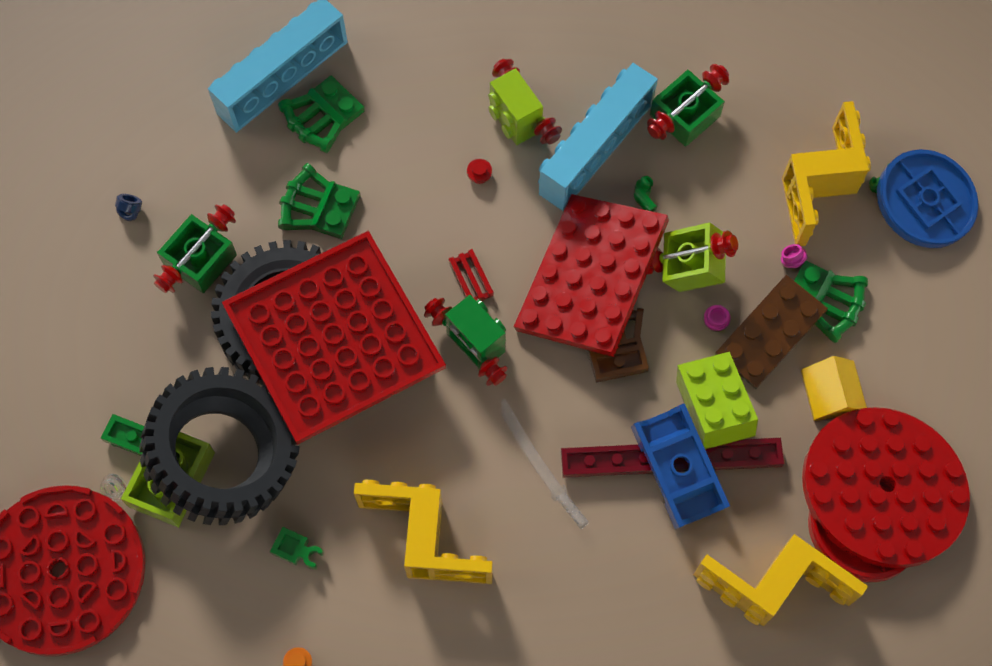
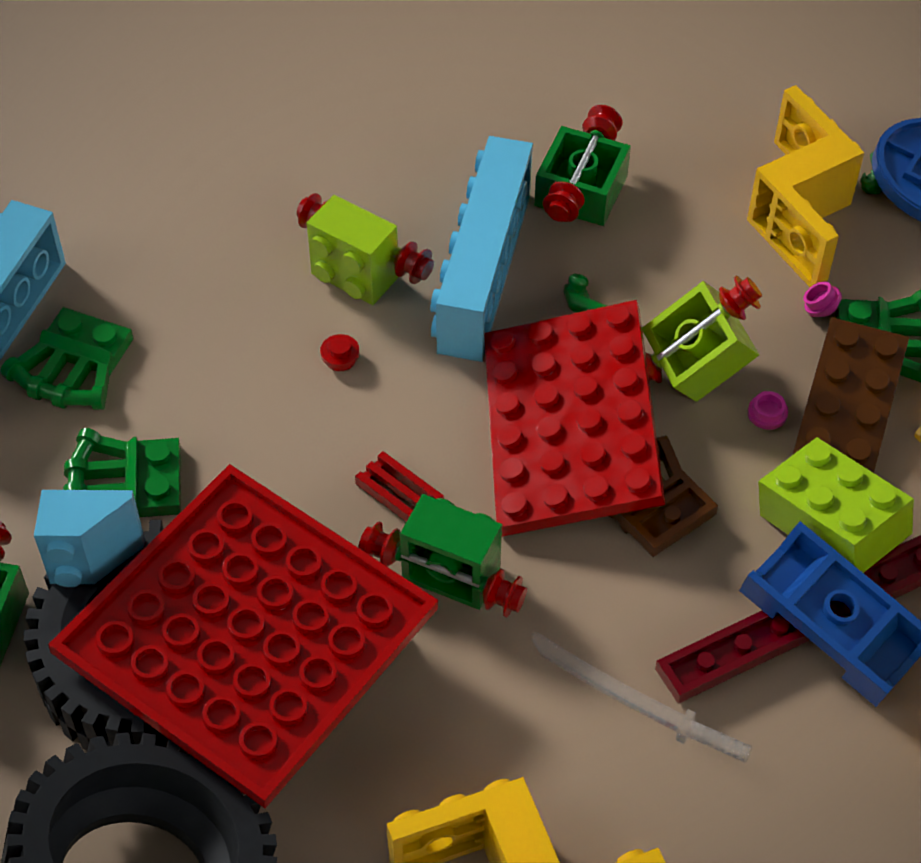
camera: 25 degrees left, 15 degrees down
(267, 244) = (86, 533): none -> medium azure slope

